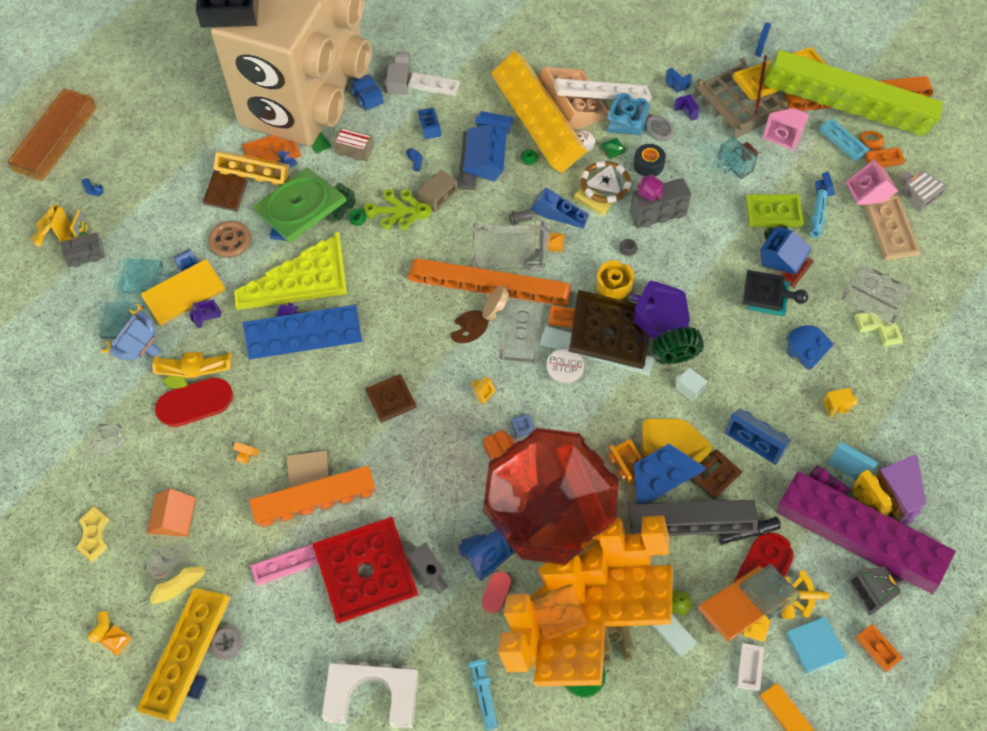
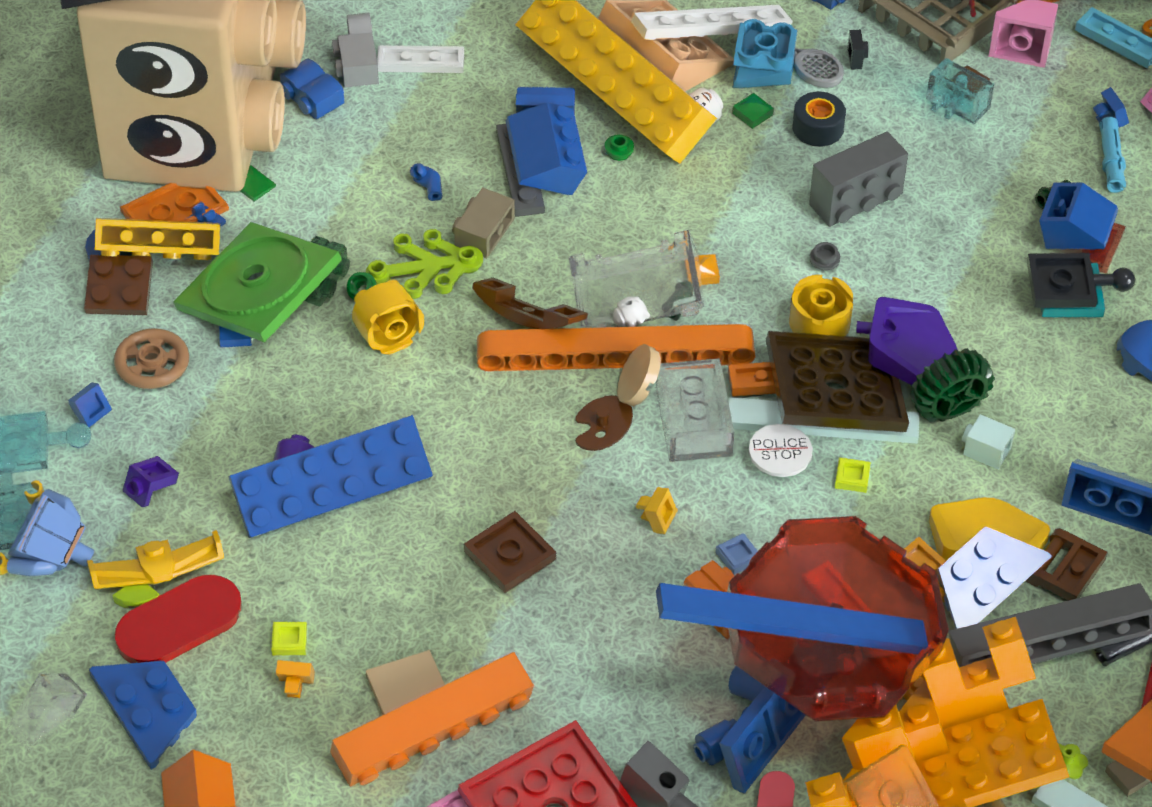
camera: 15 degrees left, 10 degrees down
(161, 451) = (146, 704): none -> blue wing
(181, 291) = (101, 452): yellow tile -> none
(251, 426) = (289, 638): none -> neon yellow tile
(309, 276) = (311, 389): neon yellow wing -> none
(353, 144) = (317, 174): brick -> none
(363, 239) = (387, 317): none -> yellow brick
(429, 124) = (435, 124): blue slope -> none
(433, 238) = (501, 299): none -> reddish brown slope
(503, 262) = (630, 312): none -> white animal
(520, 216) = (631, 241): dark grey pin -> none
(520, 493) = (790, 618): none -> blue tile
(556, 208) = (680, 211): blue slope -> none
(598, 207) = (745, 195): light yellow tile -> none
(604, 389) = (852, 475): none -> neon yellow tile
(605, 182) = (758, 163): white piece -> none
(650, 188) = (843, 153): magenta head -> none
(685, 120) = (856, 49): none -> black plate
(689, 106) = (854, 20): dark purple bracket -> none
(774, 210) = (1041, 161): lime plate -> none

